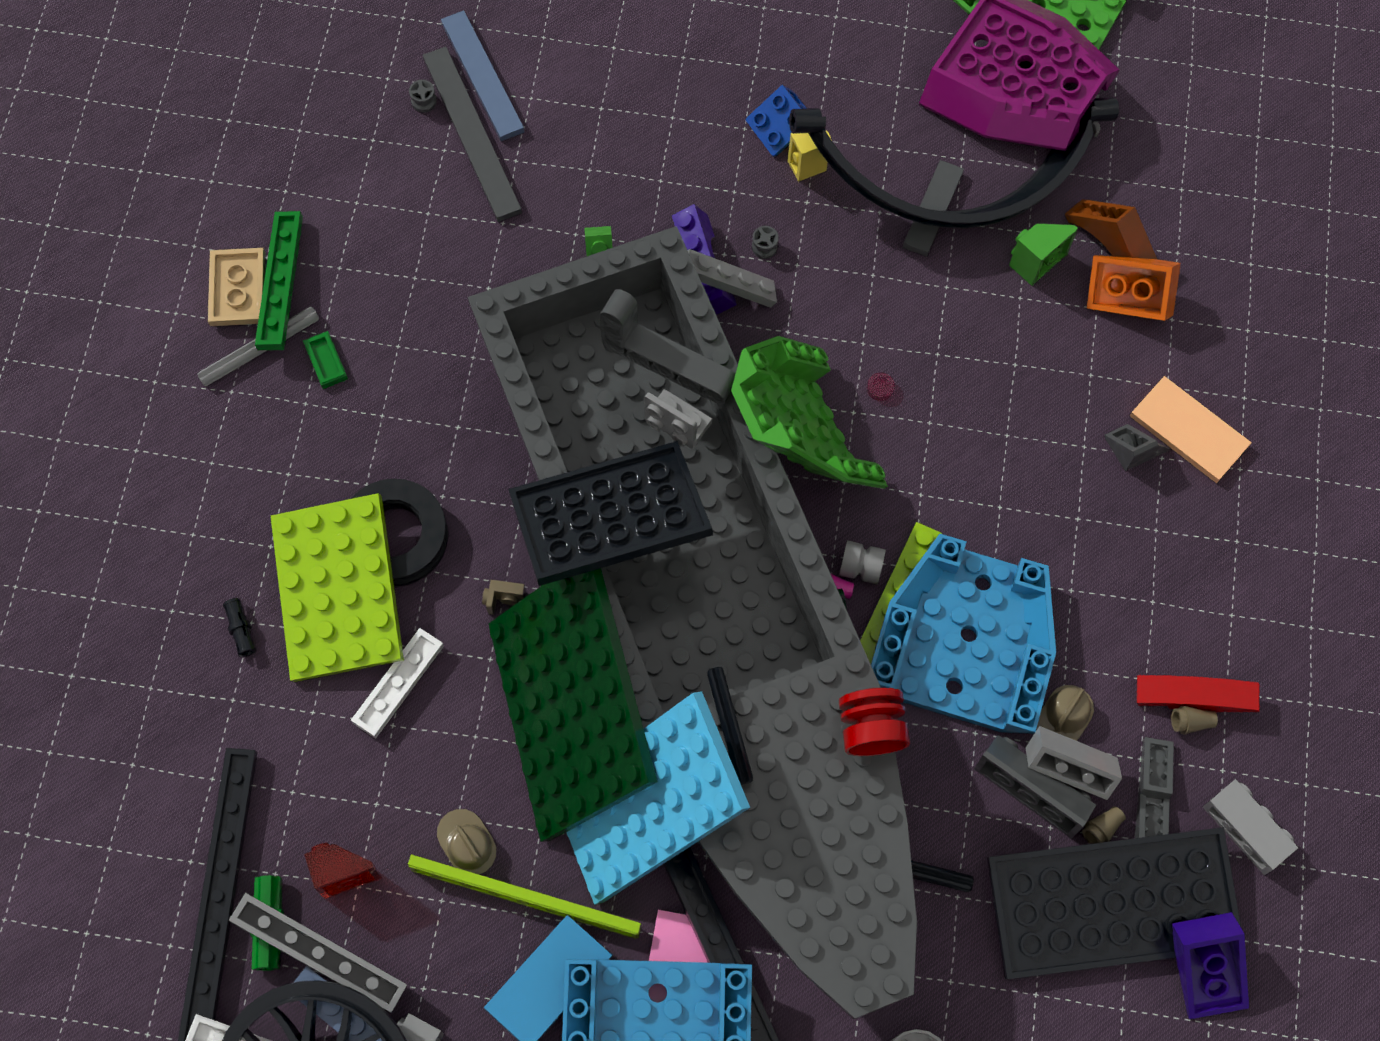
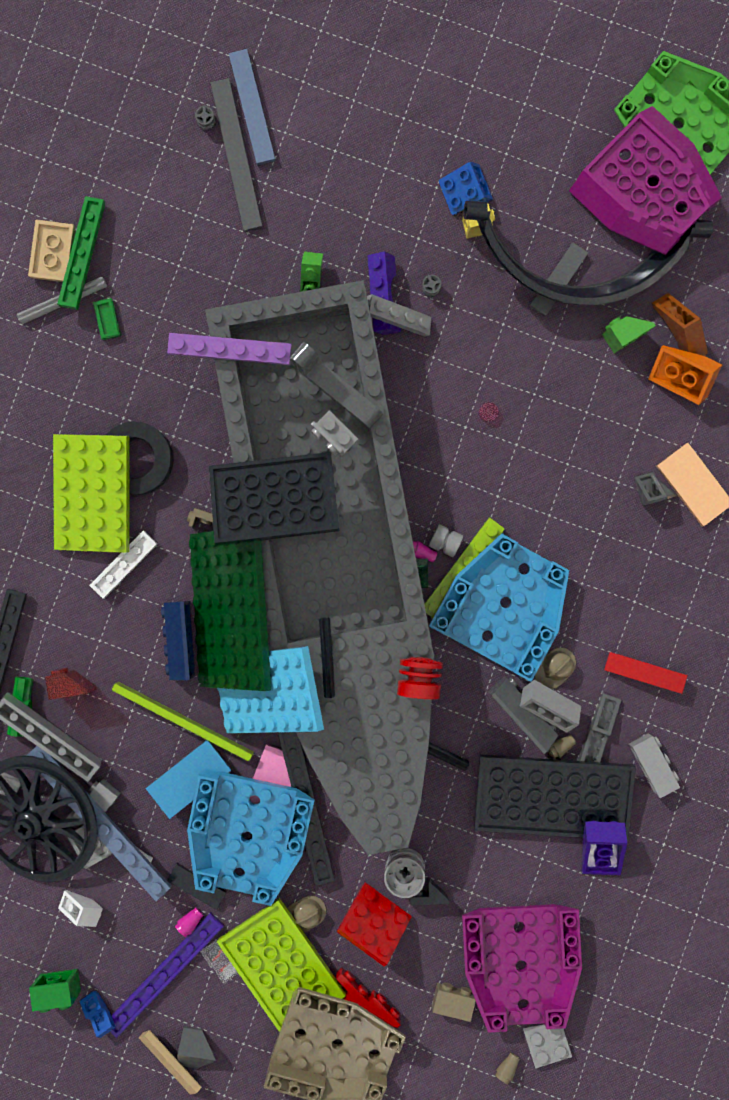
camera: 10 degrees right, 20 degrees up
(239, 627) = (25, 506): black pin -> none
(466, 841) = (152, 676): dark tan piece -> none
(498, 774) = (179, 640): none -> dark blue slope
(510, 337) = (229, 349): none -> medium lavender plate
(788, 413) = (421, 437): bright green wedge -> none
(1192, 719) = (636, 688): dark tan cone -> none

